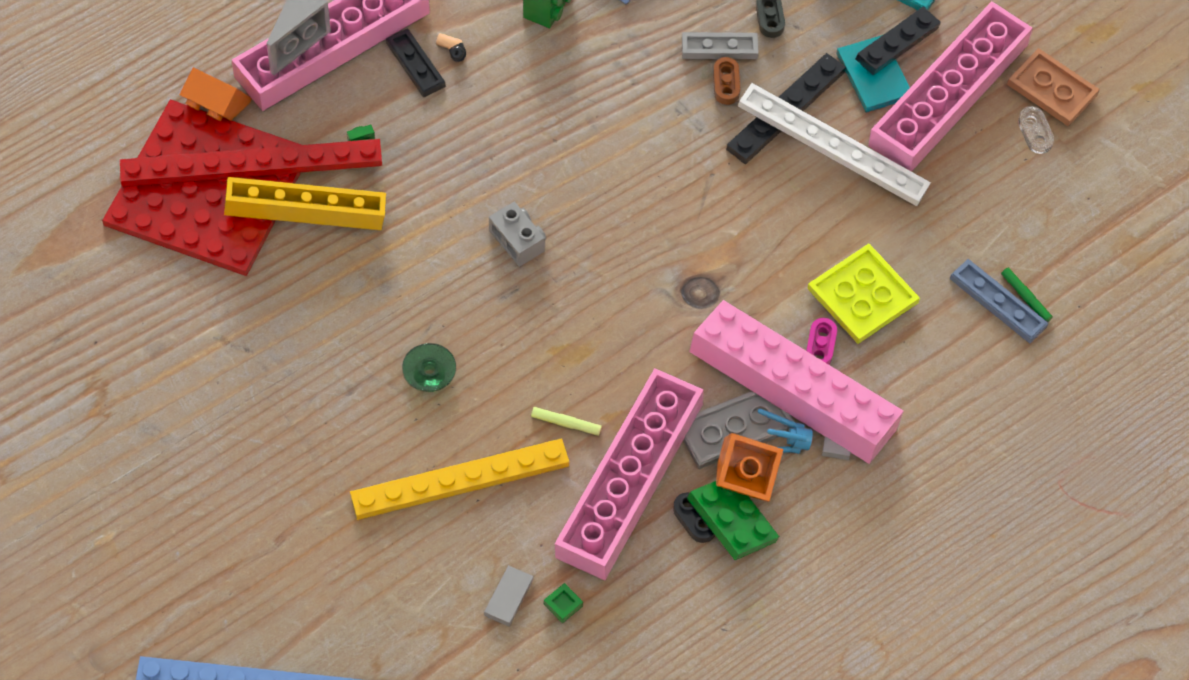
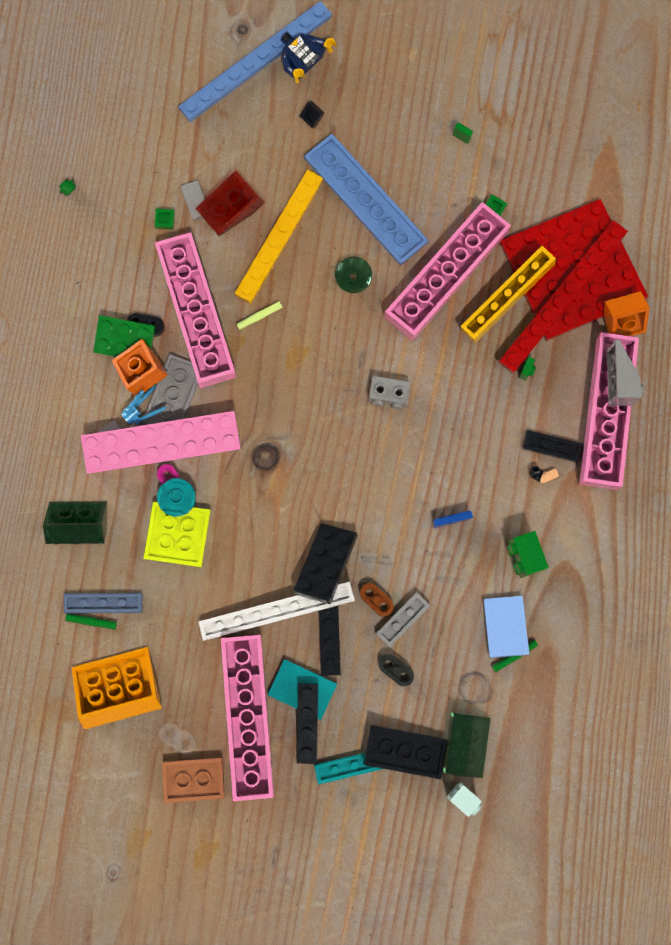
camera: 135 degrees right, 20 degrees up
(156, 401) = (462, 133): none -> green tile
(213, 305) = (496, 204): none -> green plate
(226, 634) = (303, 53): none -> torso
(287, 565) = (312, 114): none -> black plate
(331, 432) = (366, 199): none -> medium blue plate
(334, 282) = (447, 271): none -> bright pink brick
(478, 547) = (230, 204): none -> clear red slope
(582, 80) = (452, 519): none -> blue tile
(744, 139) = (325, 563): none -> black plate
(831, 319) = (176, 497): none -> teal tile
(956, 389) = (75, 523): none -> clear green slope
(1056, 216) = (115, 688): none -> light orange slope

